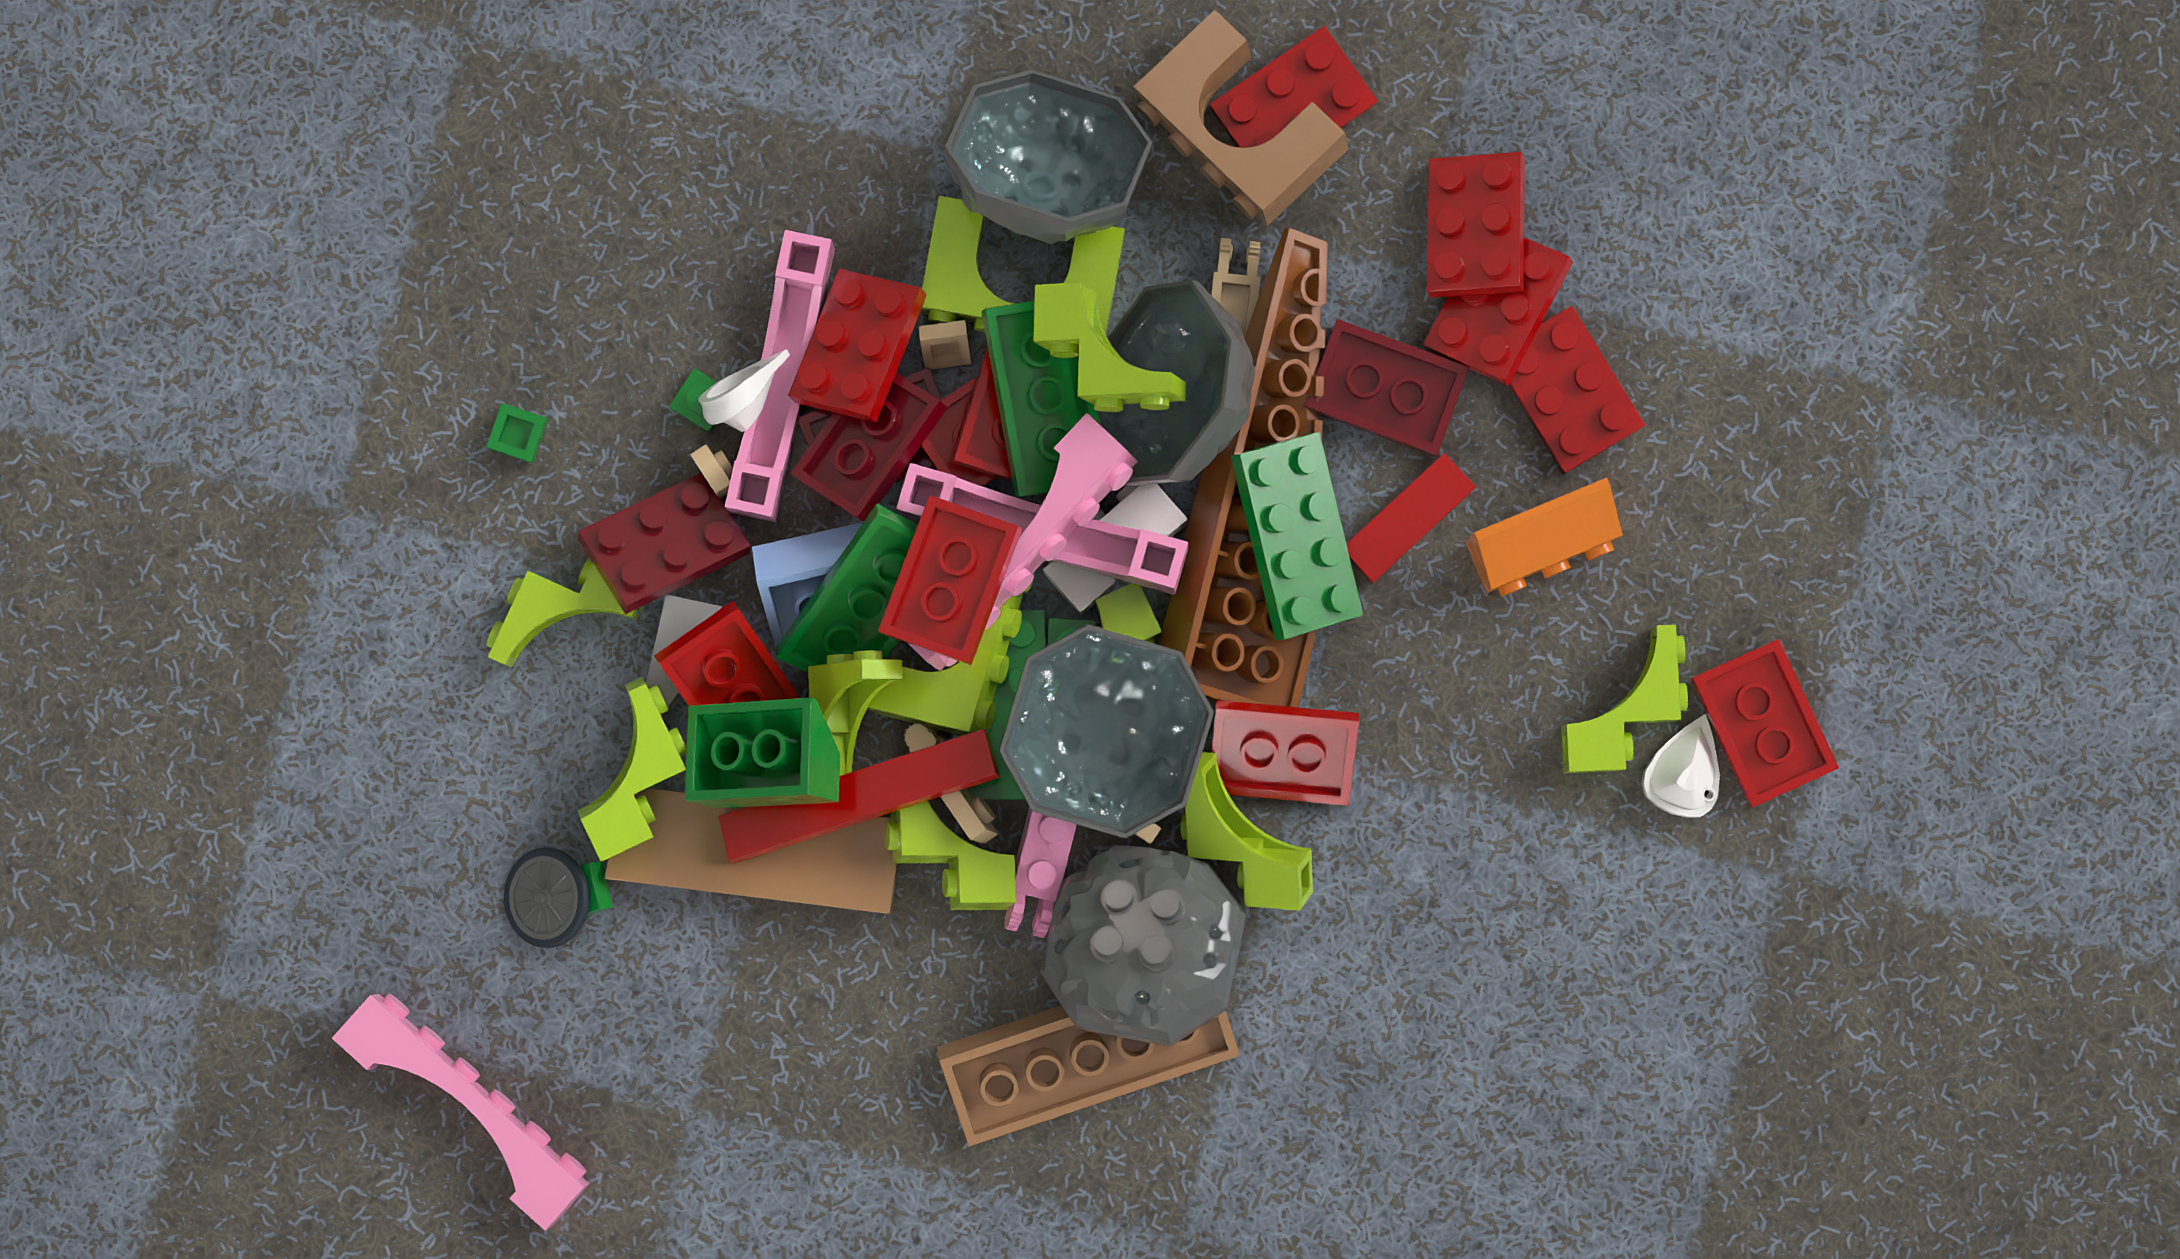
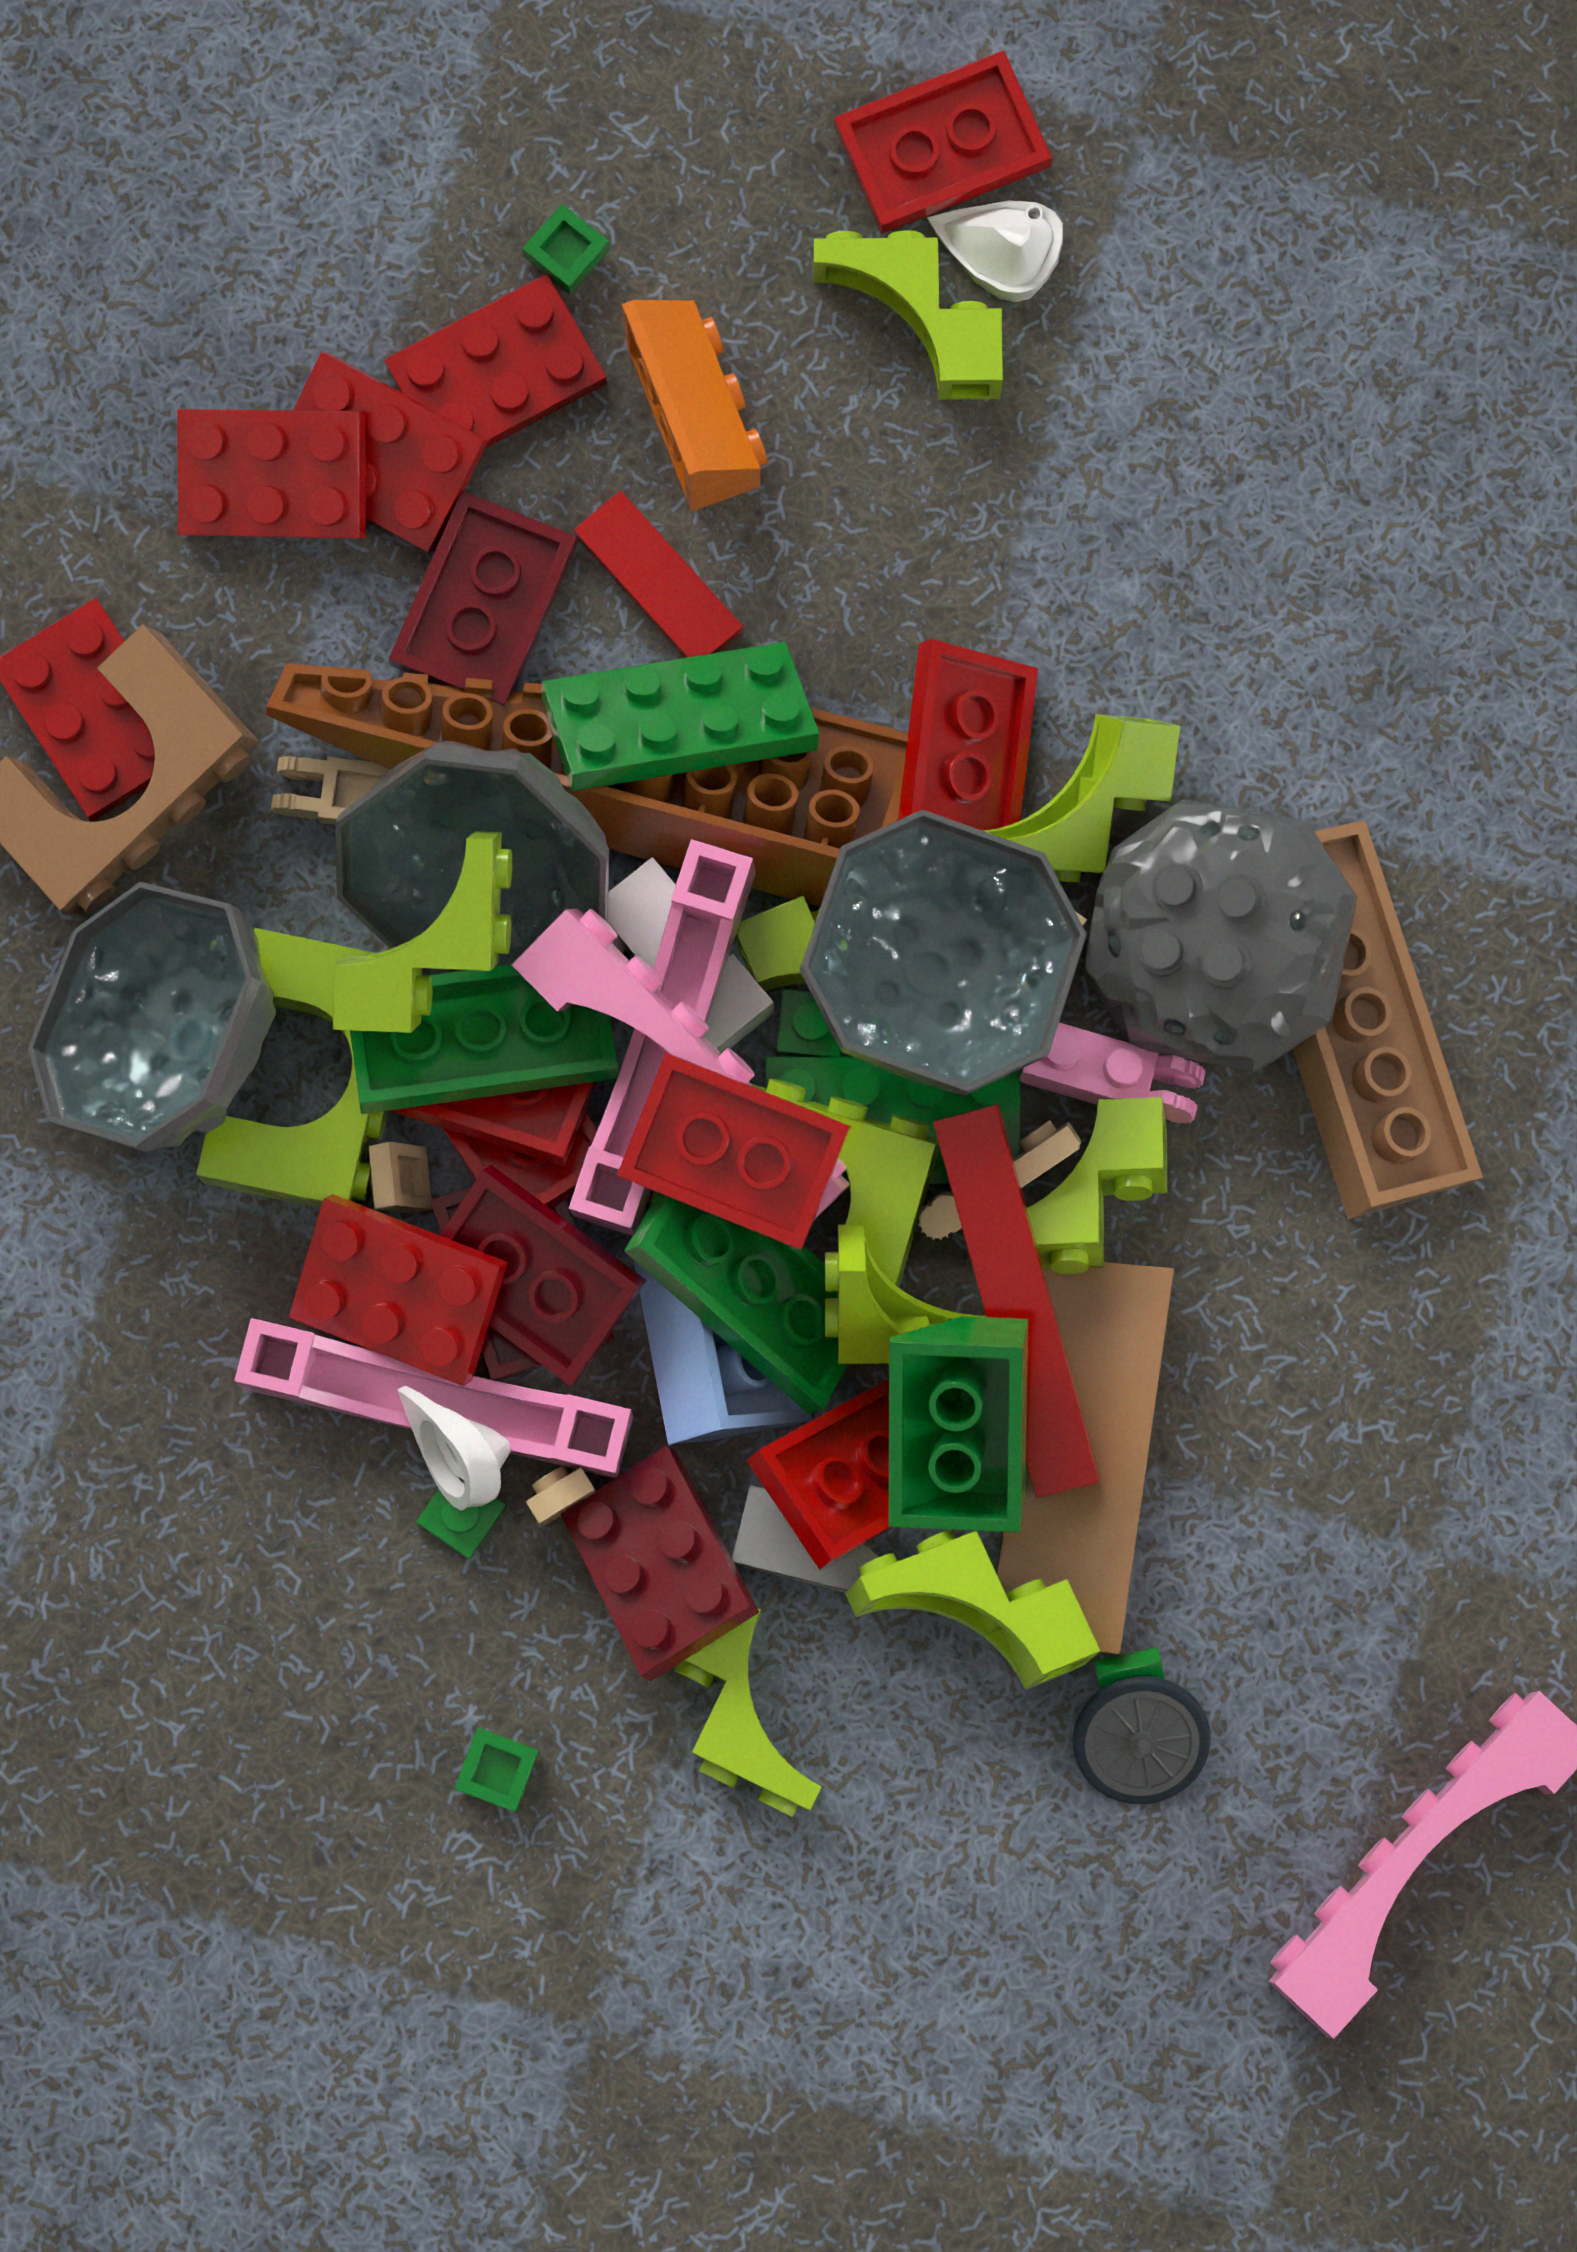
camera: 90 degrees left, 5 degrees down
(1665, 438) = (566, 249): none -> green plate

